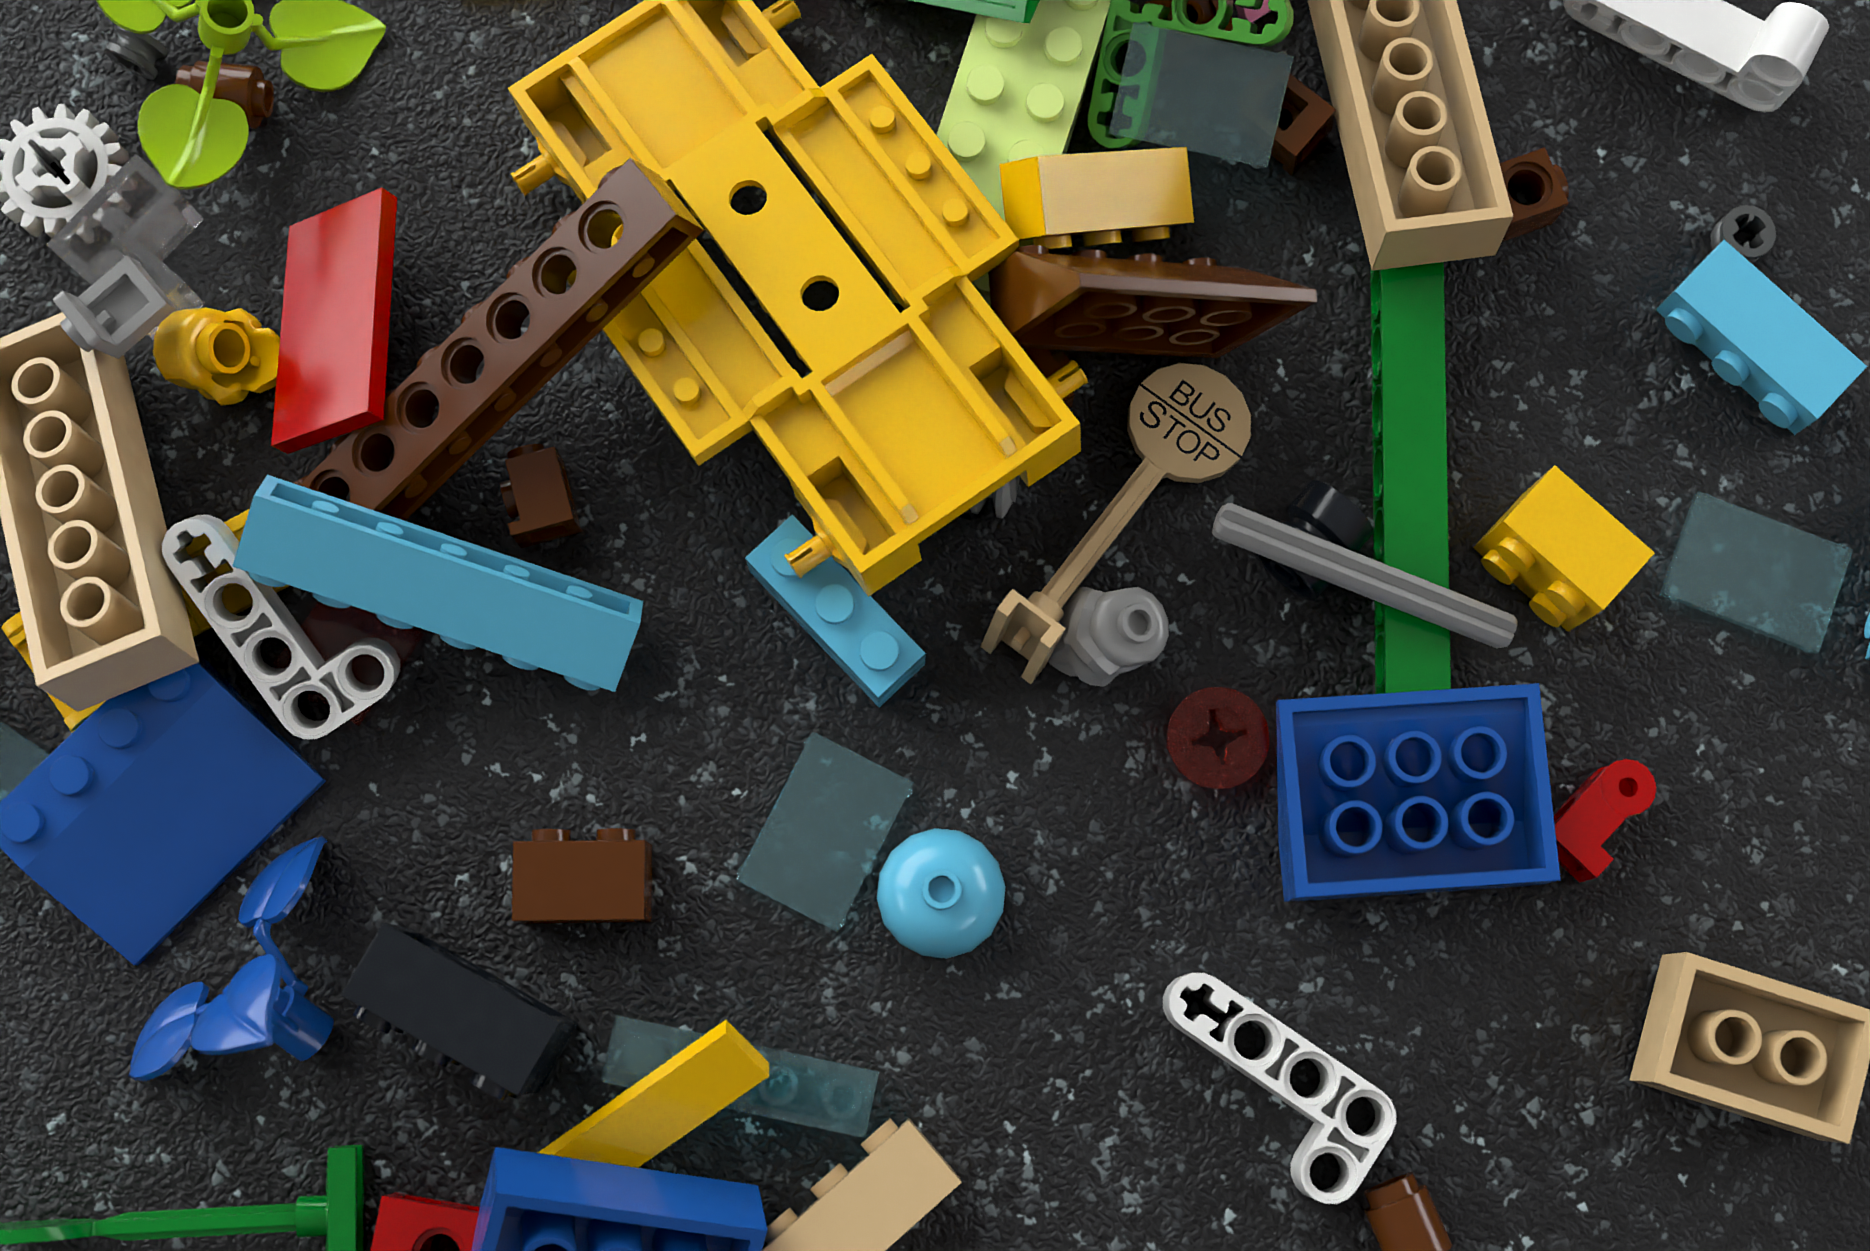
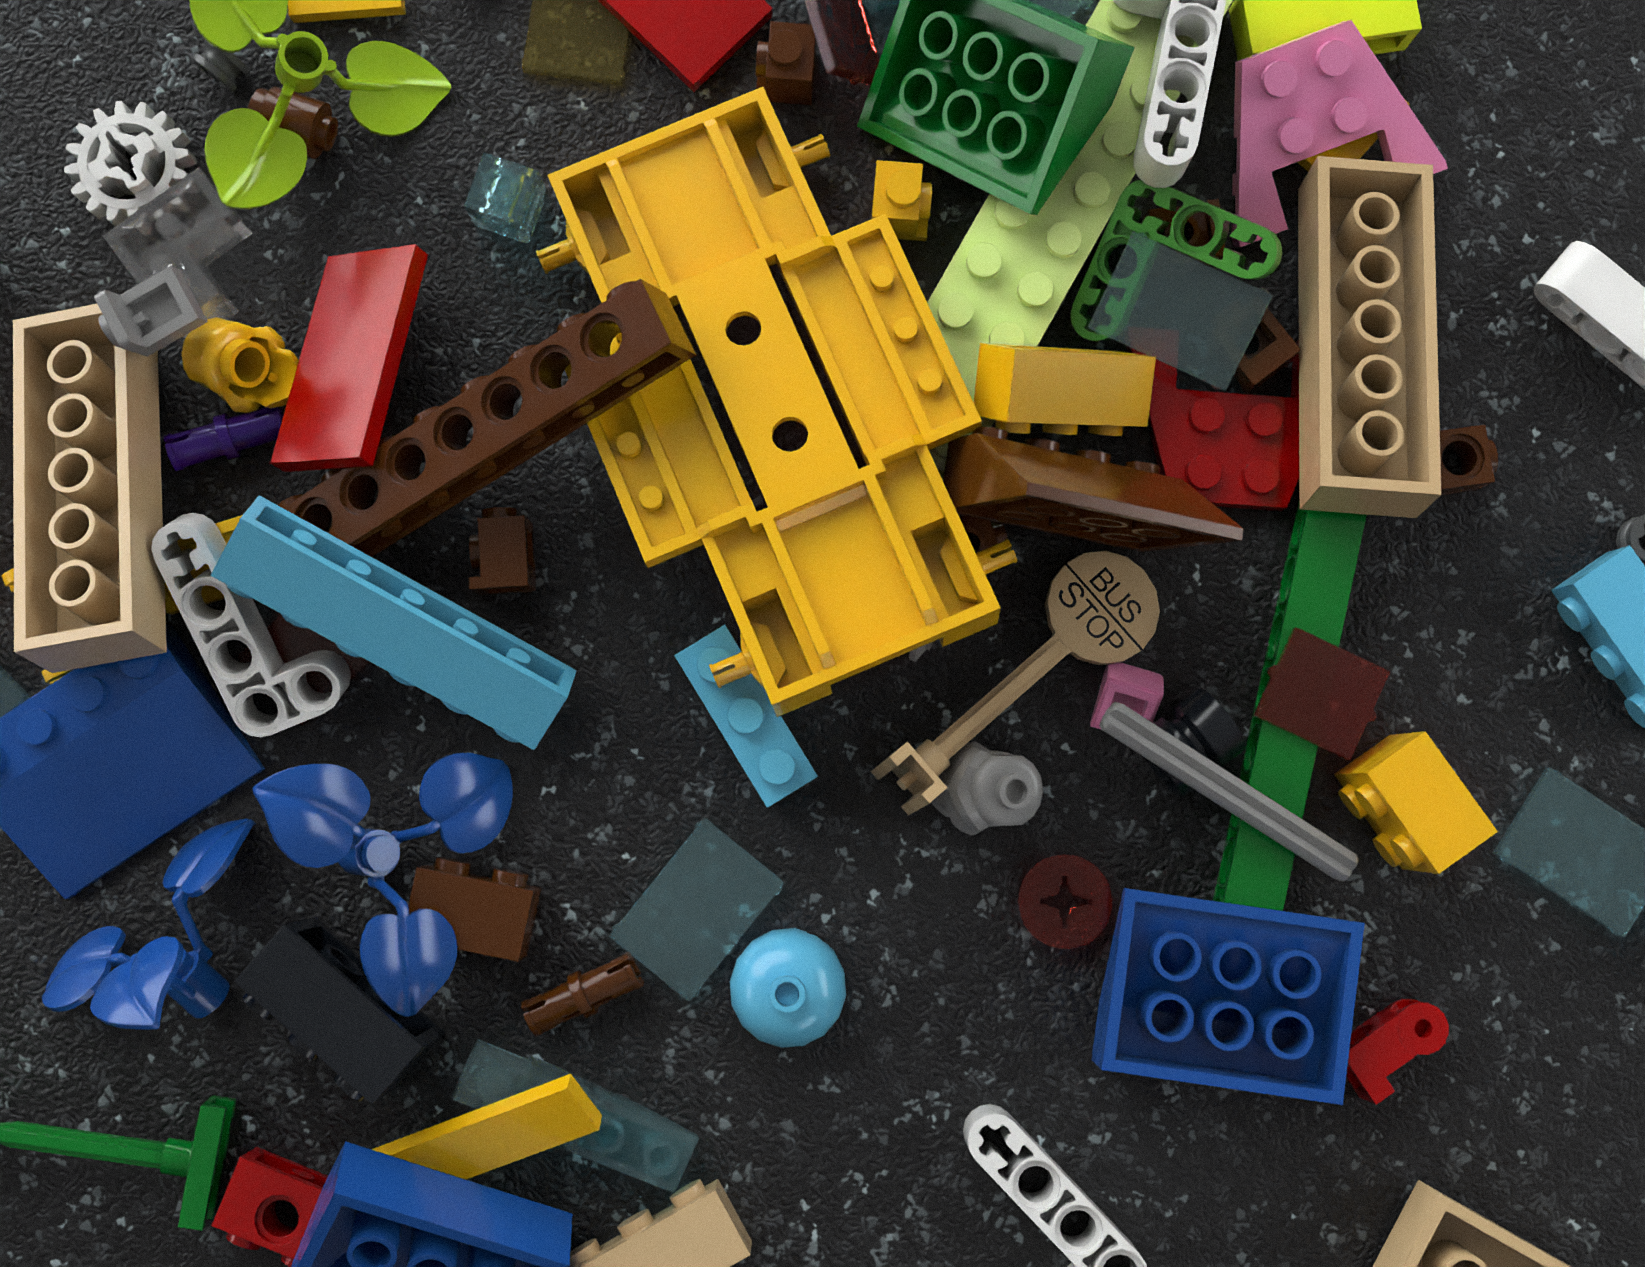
camera: 10 degrees right, 5 degrees up
(214, 435) = (223, 437): none -> dark purple pin
(397, 797) = (315, 824): none -> blue plant
(467, 126) = (506, 198): none -> clear light blue brick
(719, 946) = (582, 994): none -> reddish brown pin
(881, 32) = (903, 198): none -> yellow brick
(1246, 493) = (1130, 686): none -> bright pink slope
(1281, 223) = (1227, 444): none -> red wing
(1439, 457) = (1321, 693): none -> clear red piece

